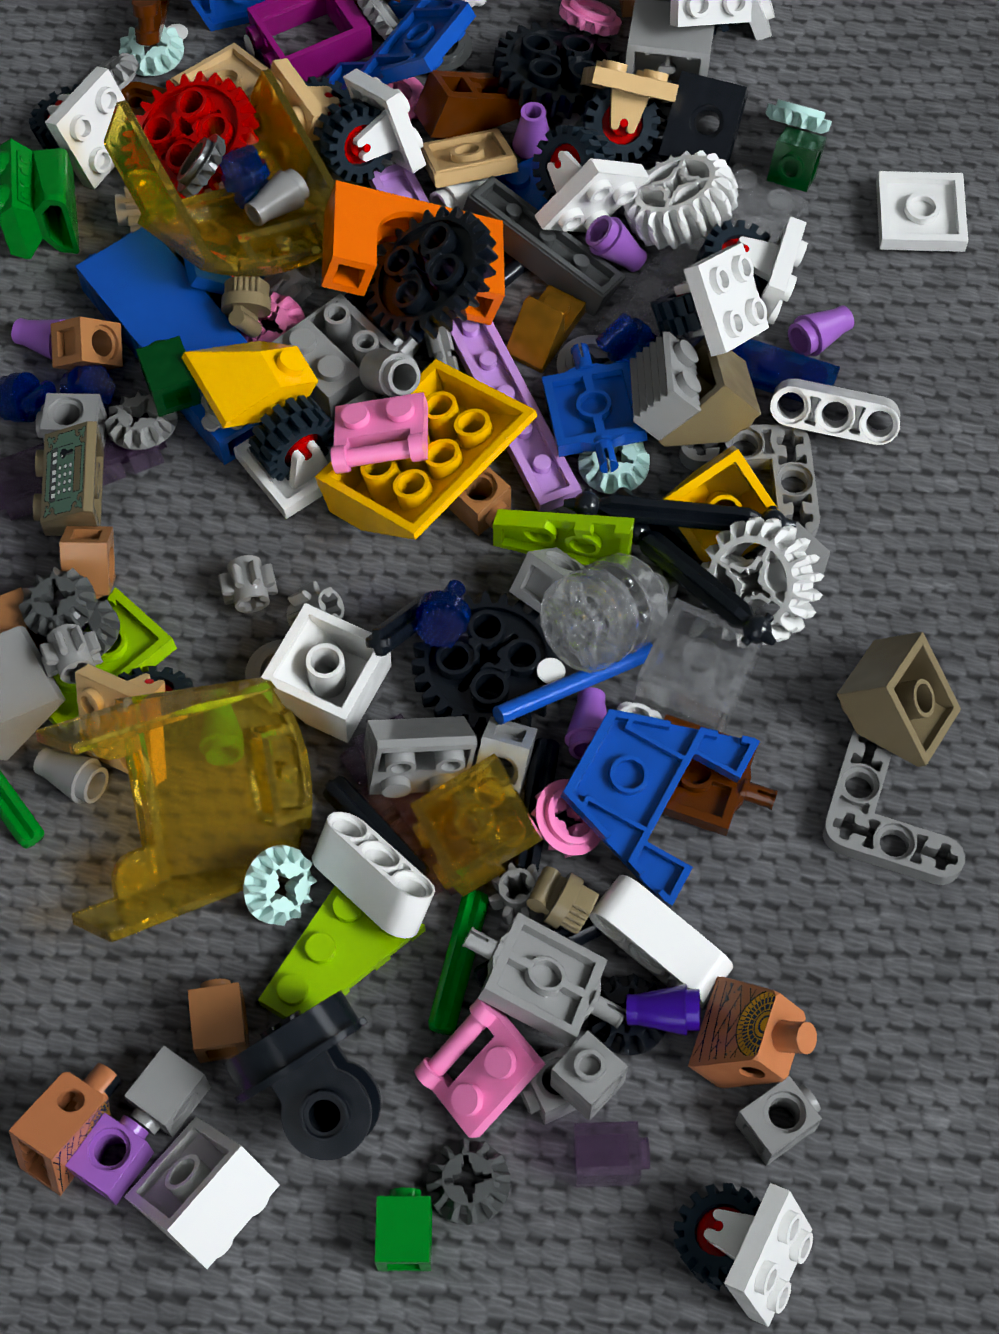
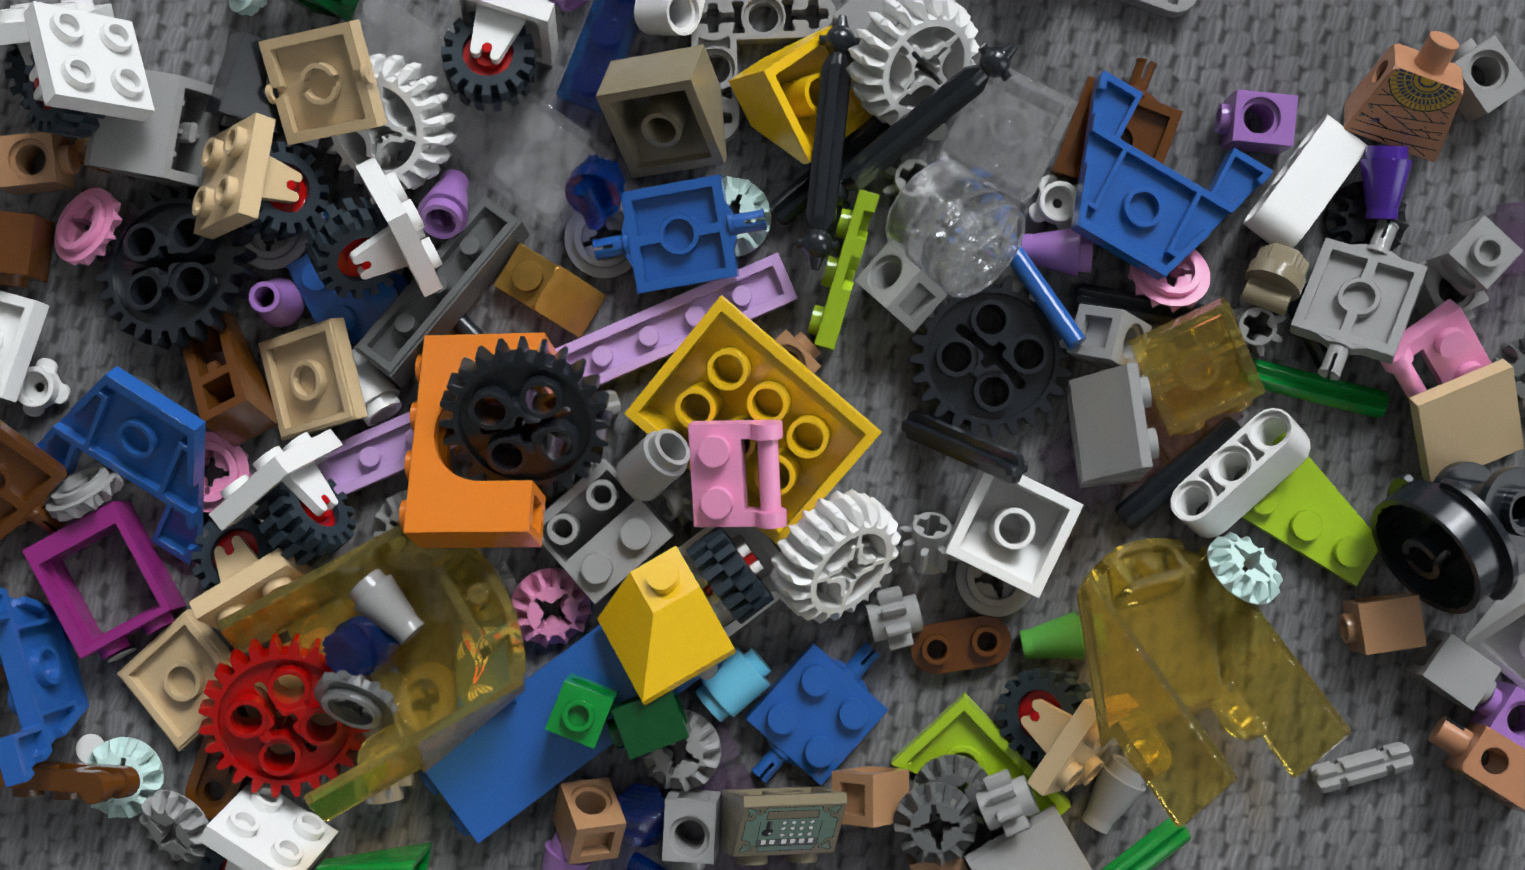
camera: 90 degrees left, 25 degrees up
(75, 1009) = (1362, 767): none -> light grey axle
(168, 529) = (816, 712): none -> blue plate
(182, 315) = (581, 710): none -> green brick
(197, 460) = (735, 684): none -> medium azure brick
(220, 644) = (960, 643): none -> reddish brown plate
(246, 302) = (546, 635): dark tan piece -> none
(308, 493) = (835, 556): none -> white gear
(423, 1100) = (1467, 419): none -> tan tile
(443, 615) = (959, 403): clear blue piece -> none
(550, 670) = (1007, 288): white sticker -> none
(664, 385) = (667, 150): light grey brick -> none
(708, 140) = (322, 82): none -> tan plate
(715, 302) = (564, 90): white plate -> none
(721, 919) = (1277, 115): none -> medium lavender brick

